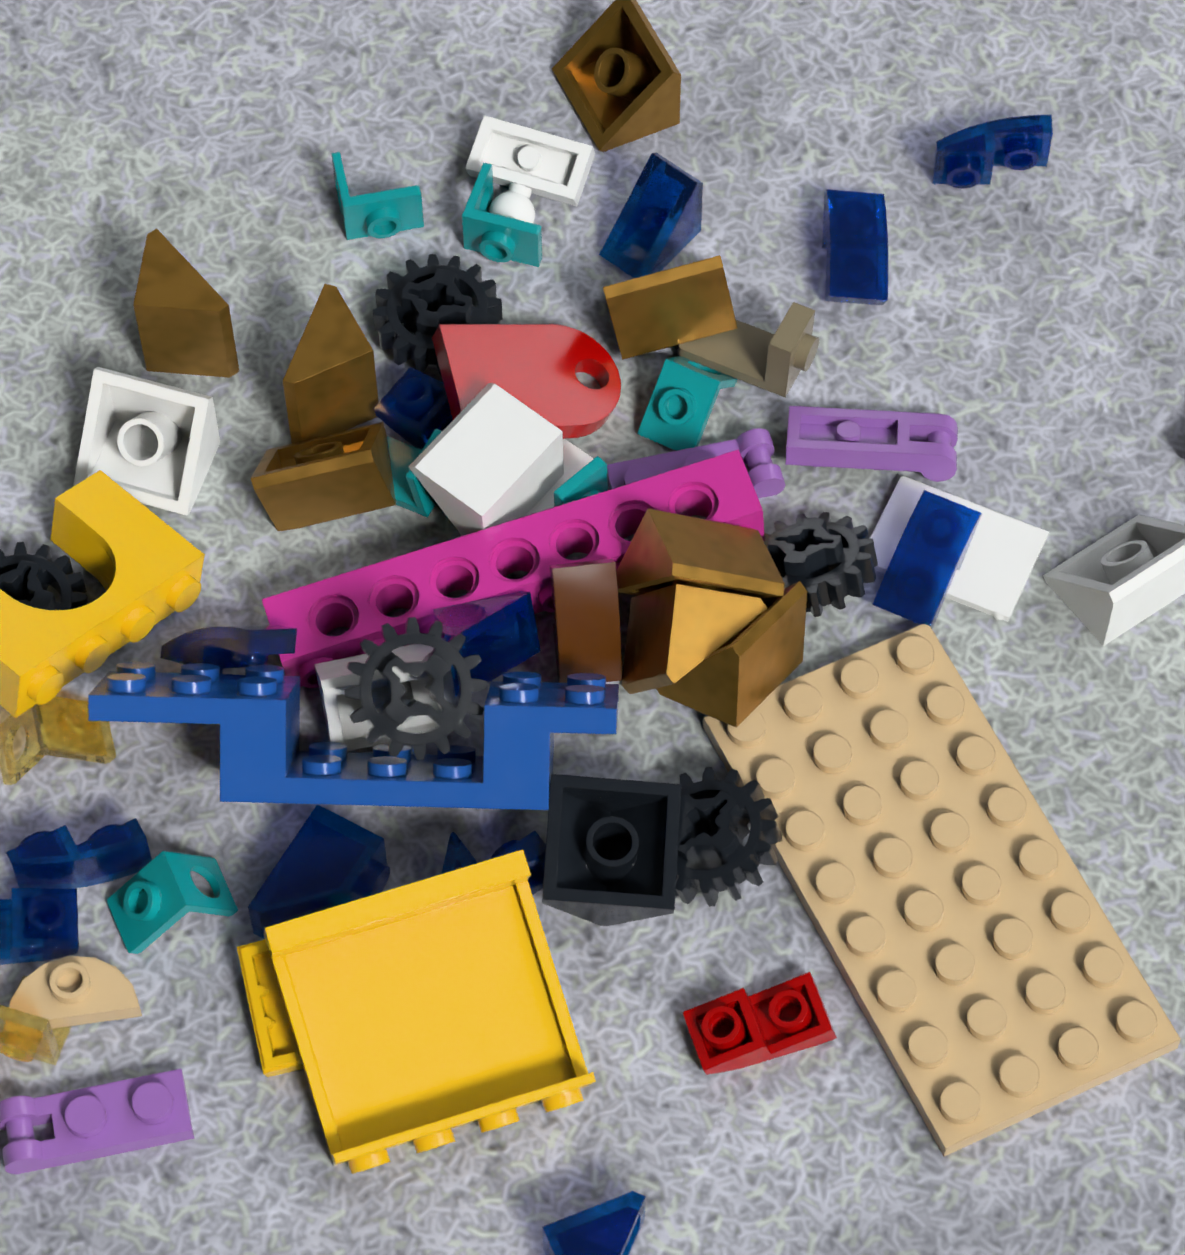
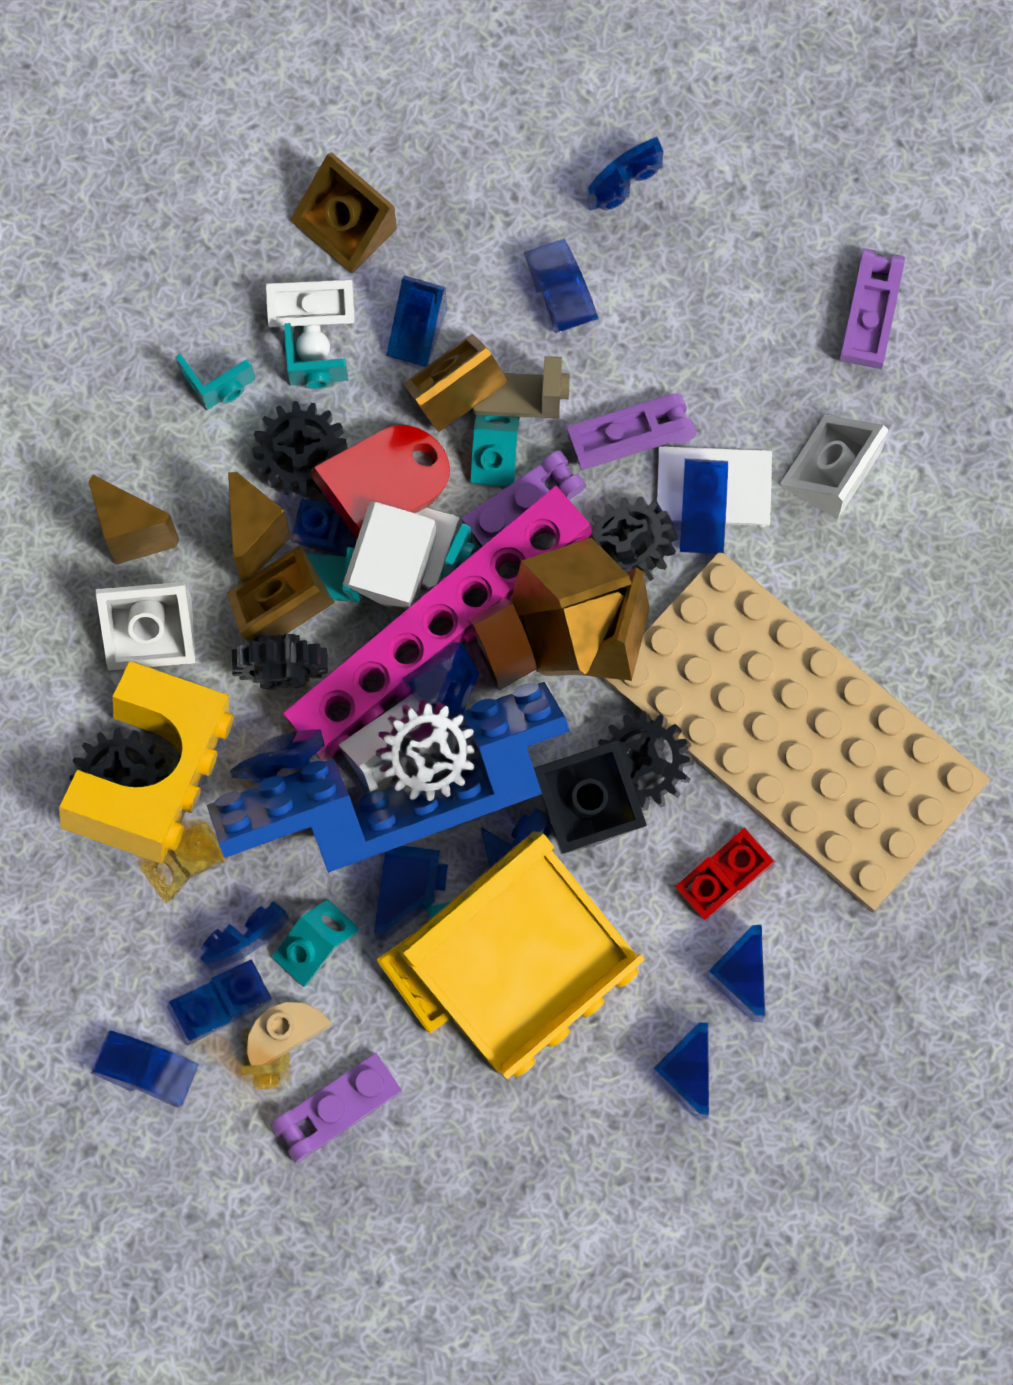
camera: 20 degrees left, 15 degrees up
(286, 535) = (279, 661): none -> black gear
(722, 1156) = (741, 974): none -> clear blue slope

